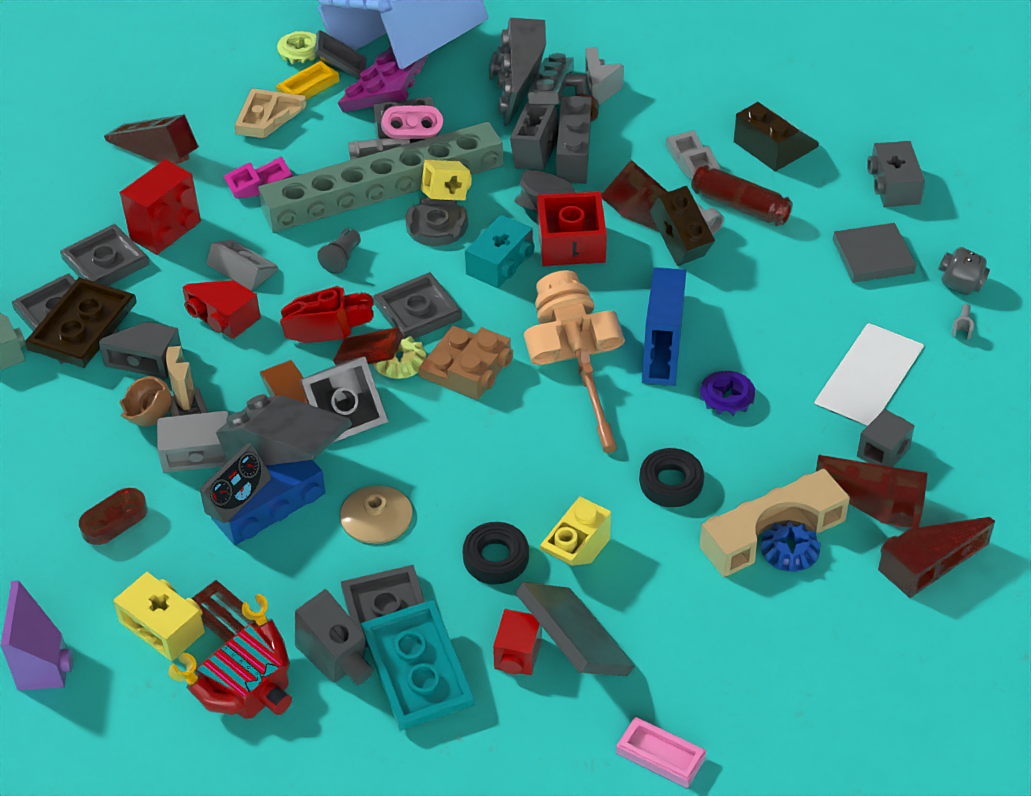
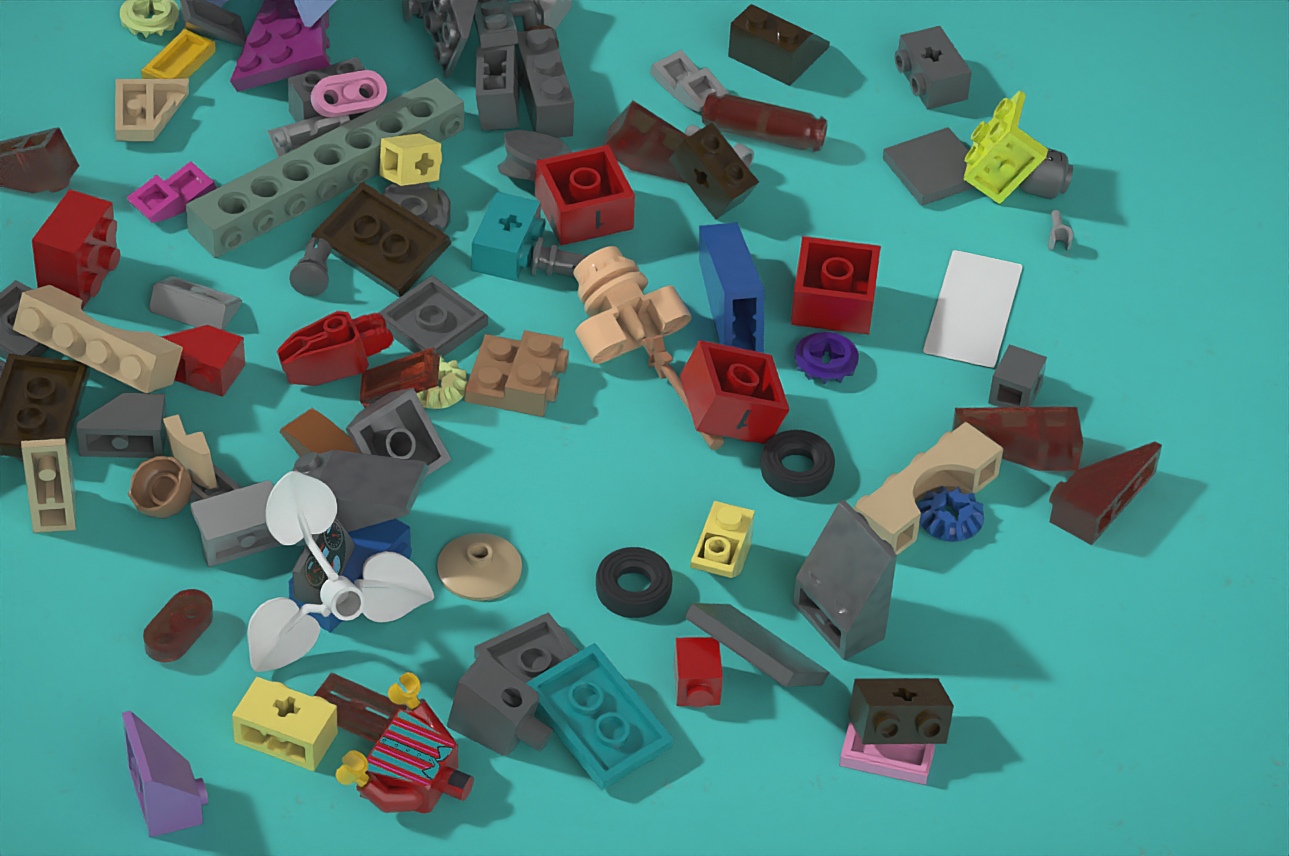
camera: 20 degrees left, 0 degrees up
(56, 382) = (50, 485): none -> tan slope
(163, 295) = (126, 355): none -> tan arch
(183, 535) = (388, 590): none -> white plant
(401, 238) = (382, 239): none -> dark brown tile
(525, 274) = (553, 260): none -> dark grey pin
(632, 407) = (734, 392): none -> red brick
(668, 591) = (847, 583): none -> flat silver slope
(680, 716) = (900, 711): none -> dark brown brick
(752, 334) = (835, 285): none -> red brick
(929, 249) = (1002, 152): none -> neon yellow bracket

